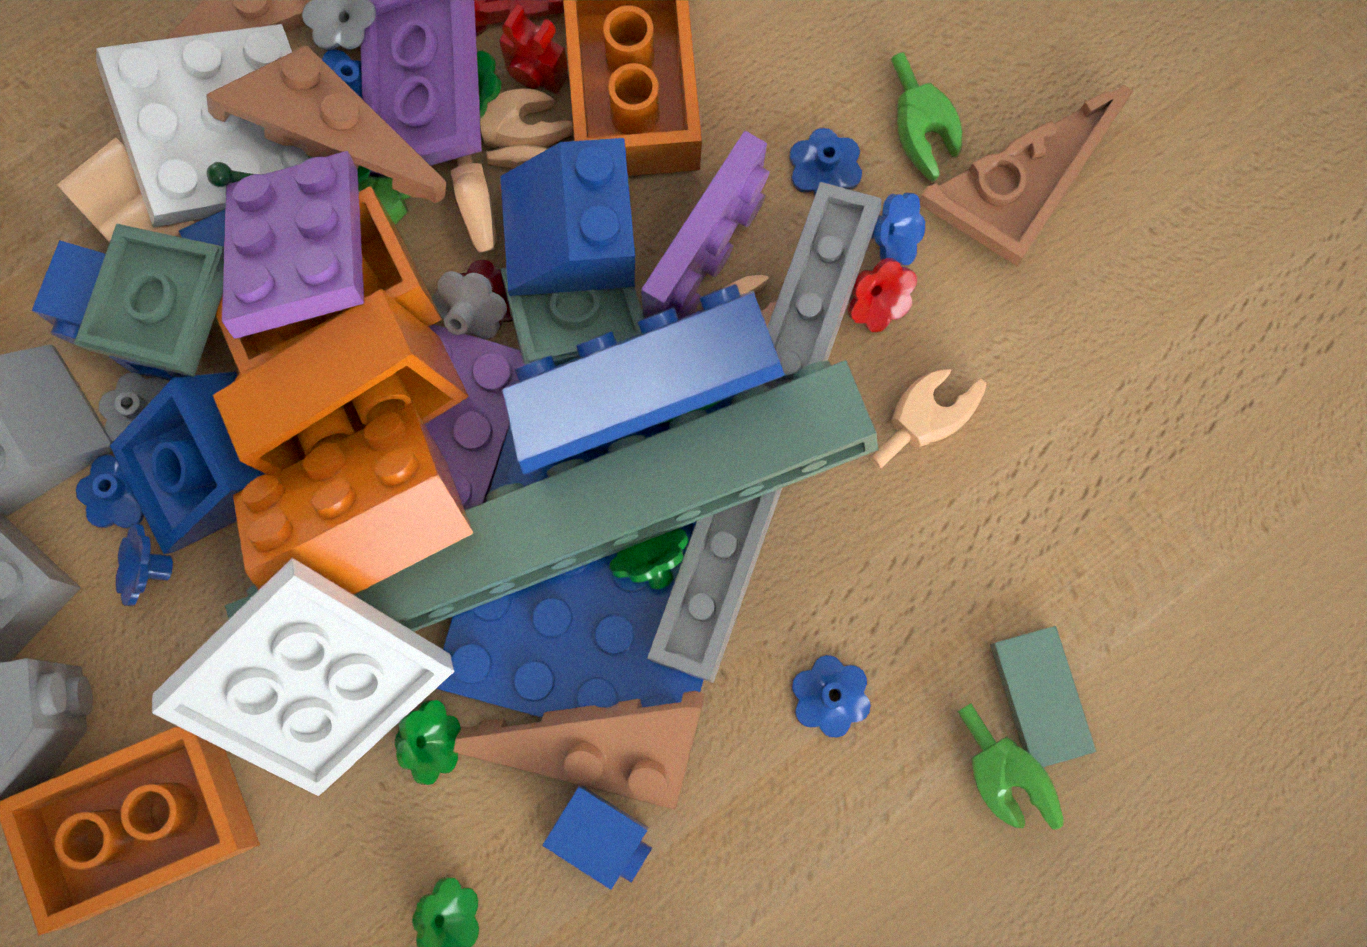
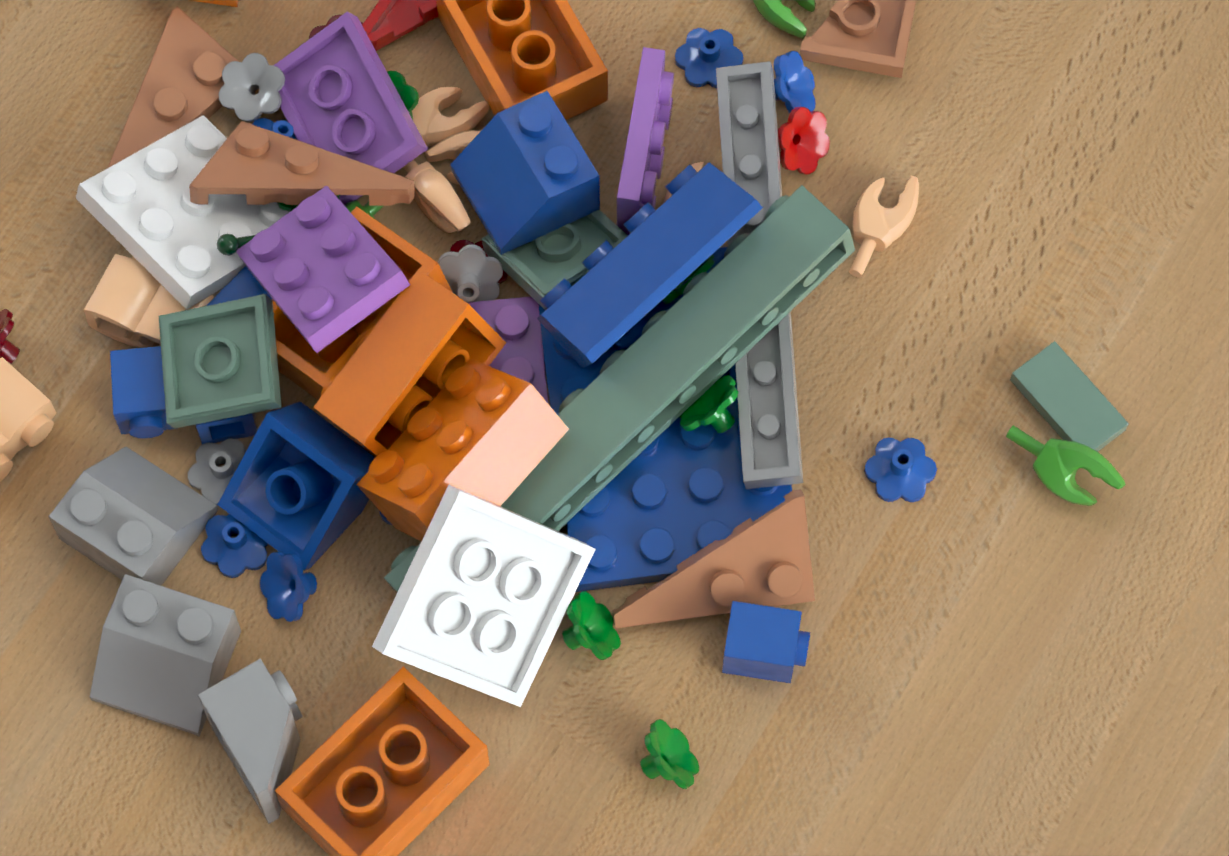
camera: 20 degrees left, 10 degrees down
(531, 54) = (430, 57): red plate -> none

